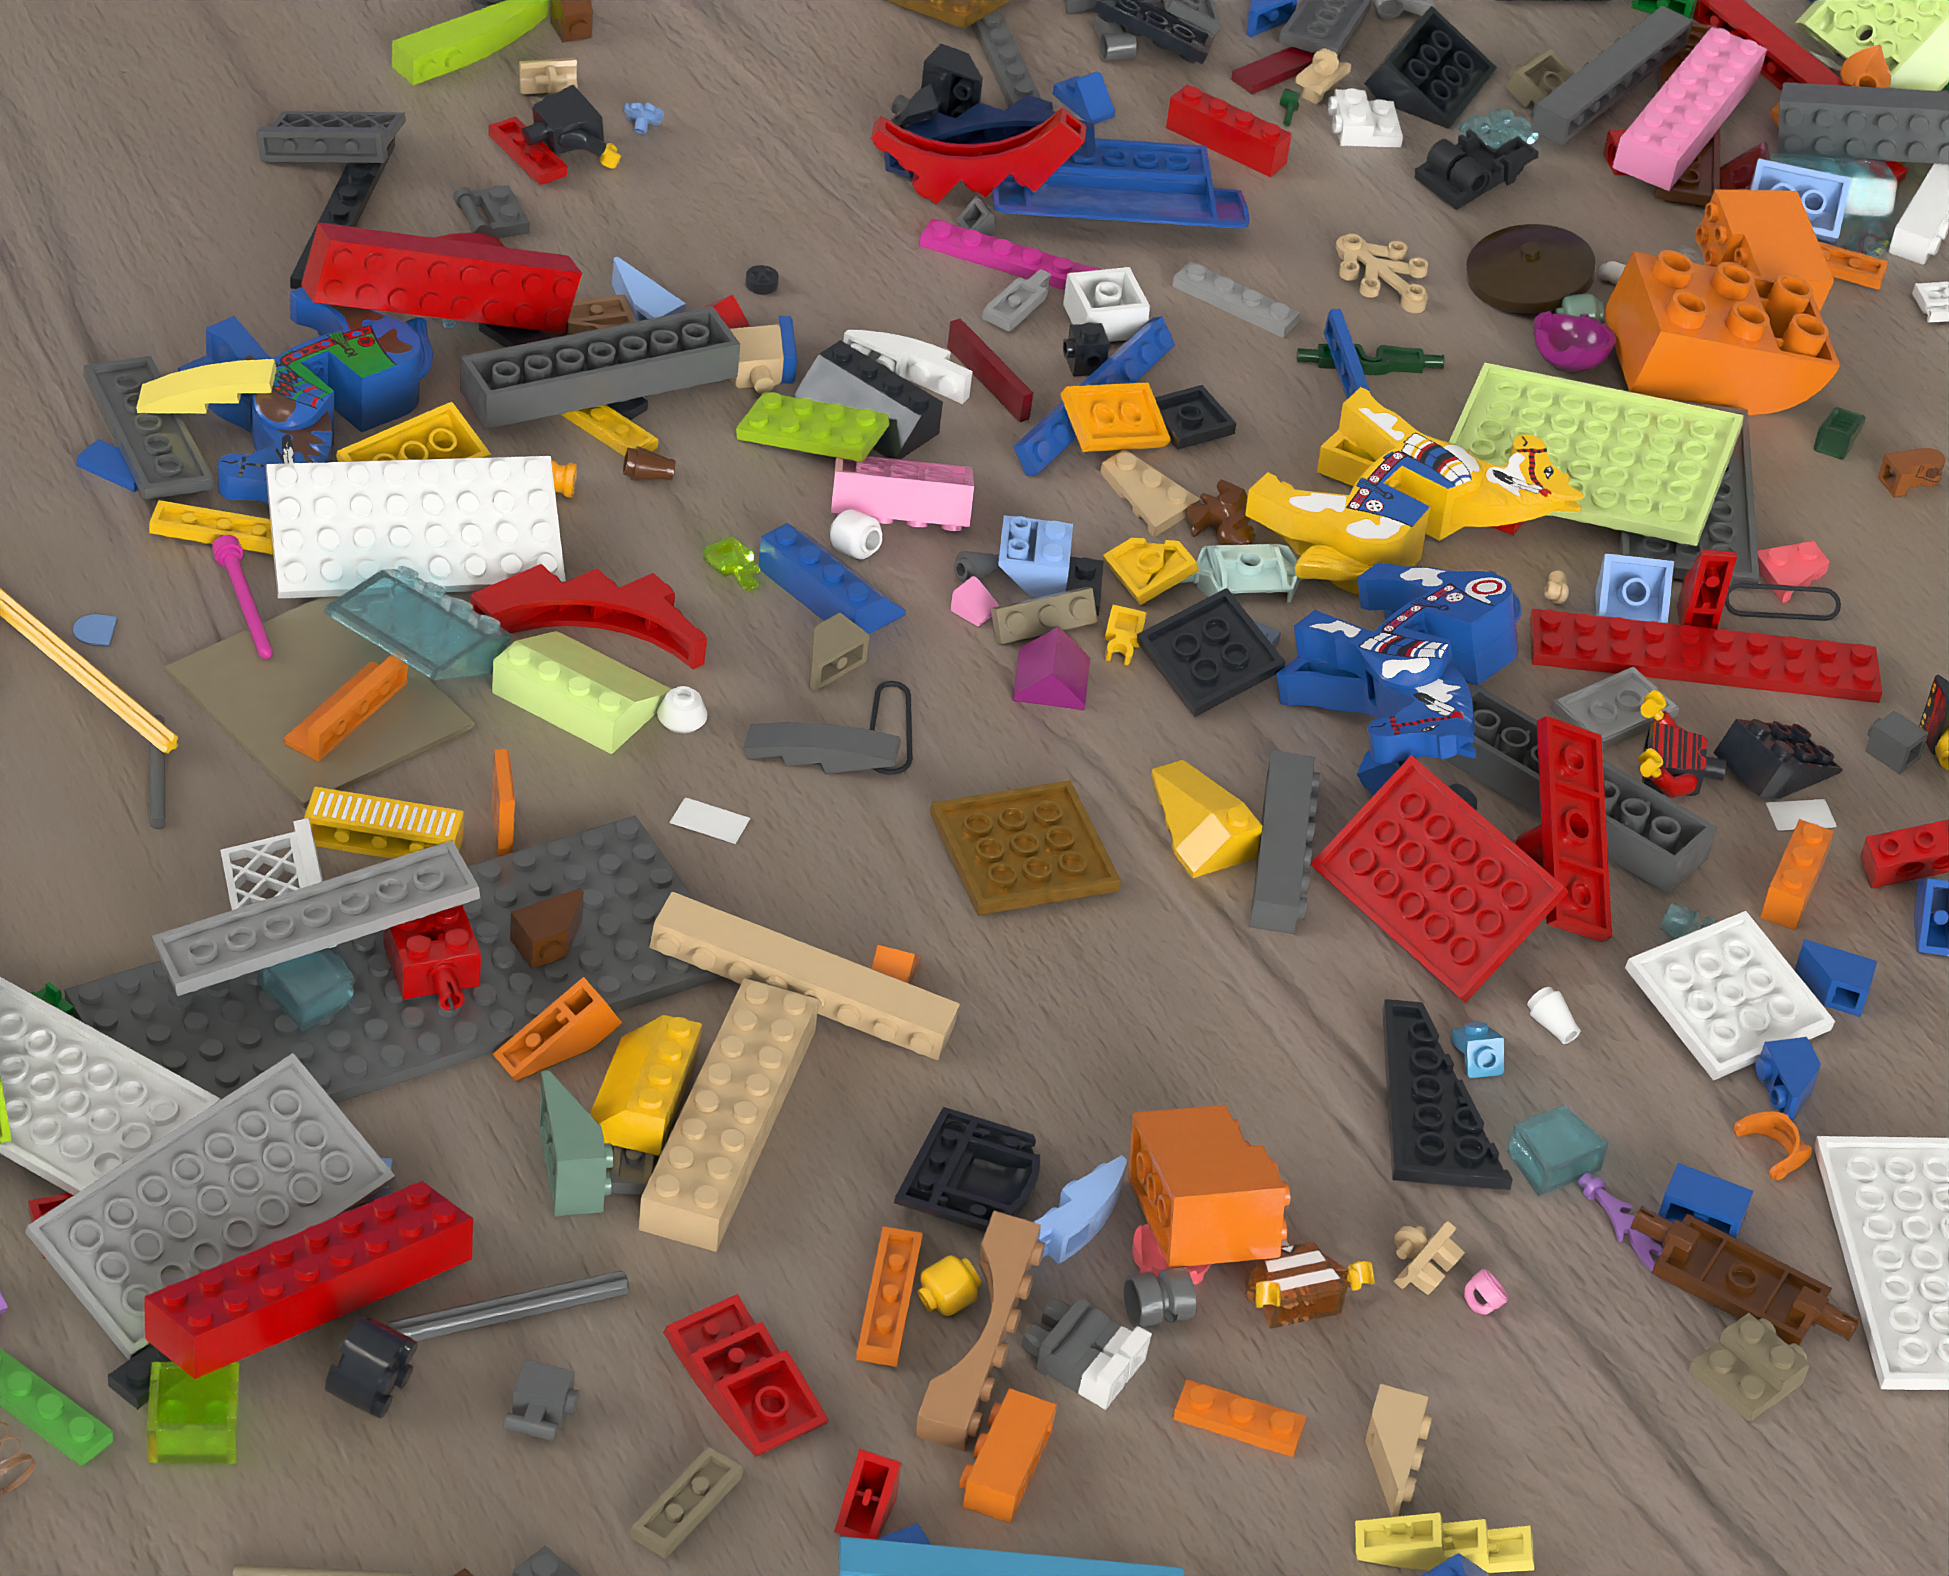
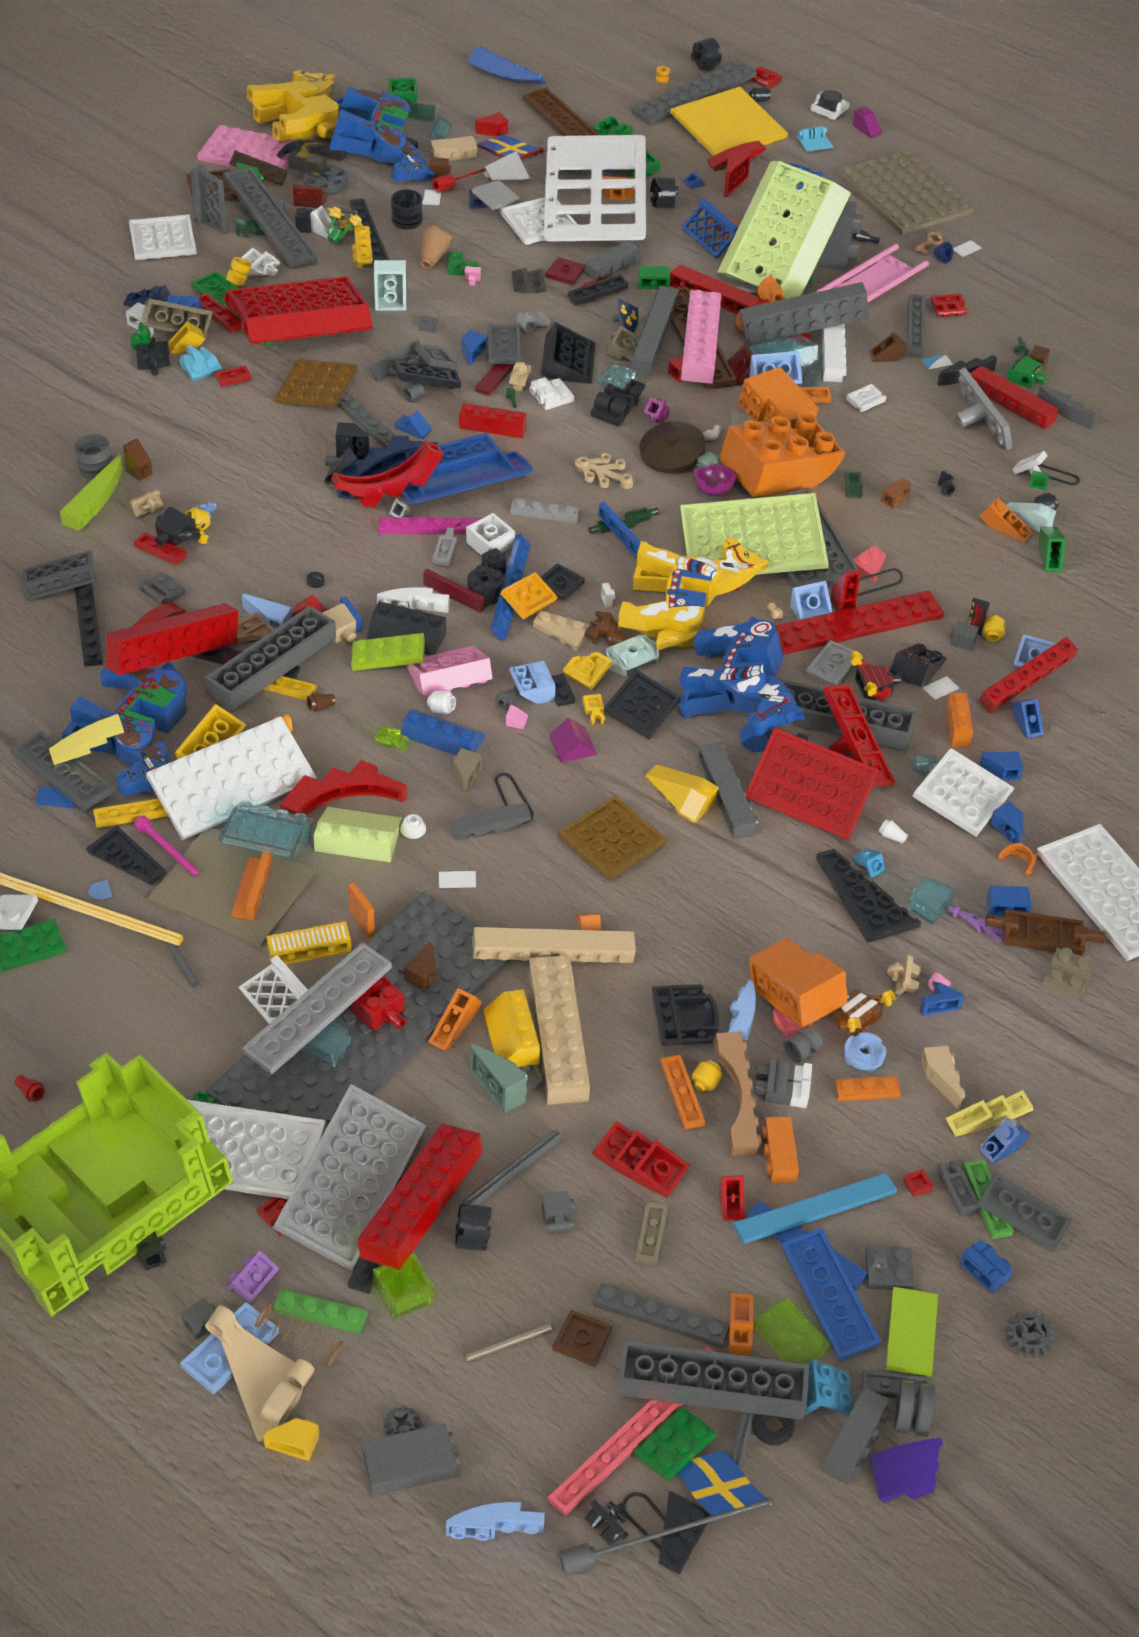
camera: 20 degrees left, 5 degrees up
(169, 588) = (125, 854): none -> black wing
(619, 123) = (201, 517): none -> yellow head
(1044, 614) = (553, 712): dark tan plate -> none
(1047, 372) = (485, 582): none -> black brick
(1263, 461) = (607, 595): none -> white plate
(1266, 1373) = (862, 1061): none -> light blue plate
(1475, 1326) = (943, 1000): none -> blue slope
(1537, 201) = (657, 410): none -> magenta brick
(1578, 38) = (627, 315): none -> dark blue shield

